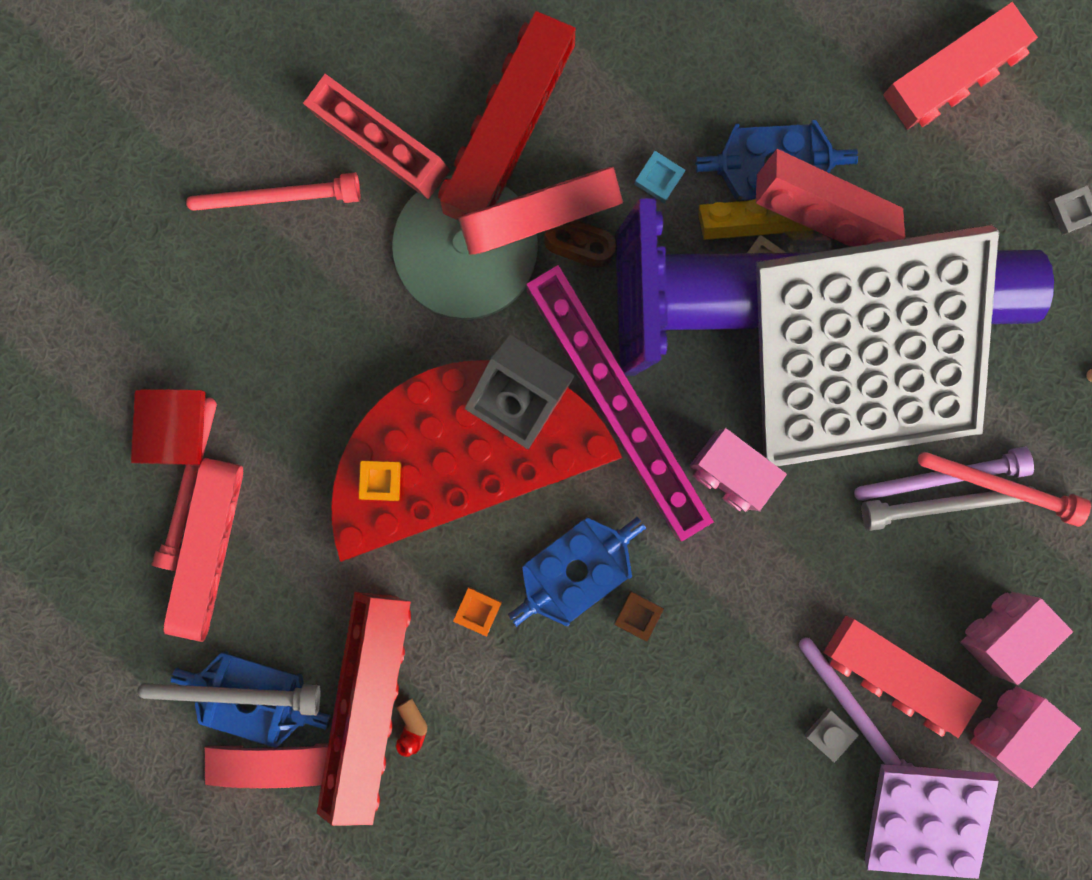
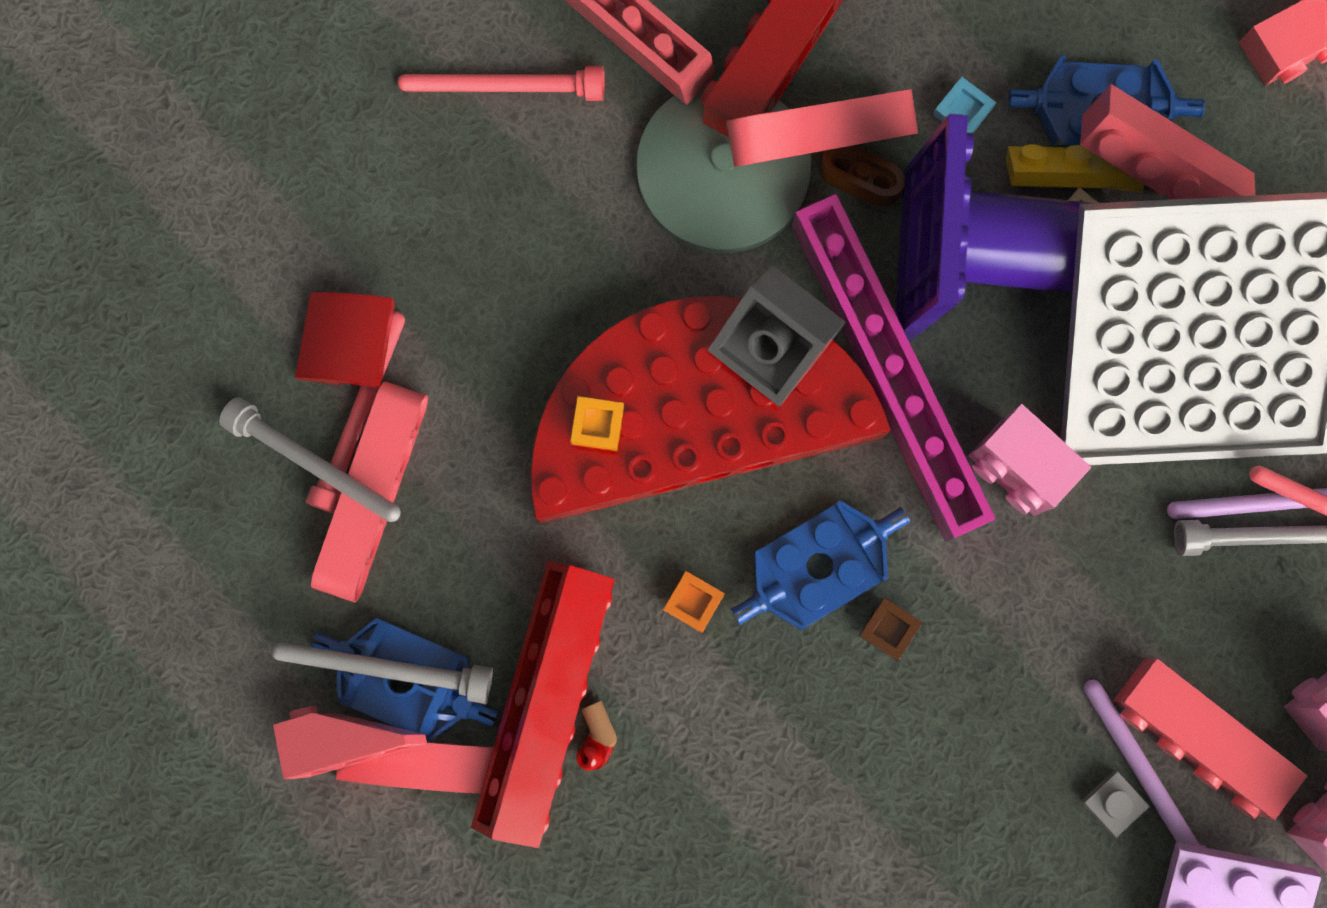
camera: 10 degrees right, 5 degrees down
(92, 501) = (243, 419): none -> light grey piece
(197, 756) = (329, 741): none -> coral slope

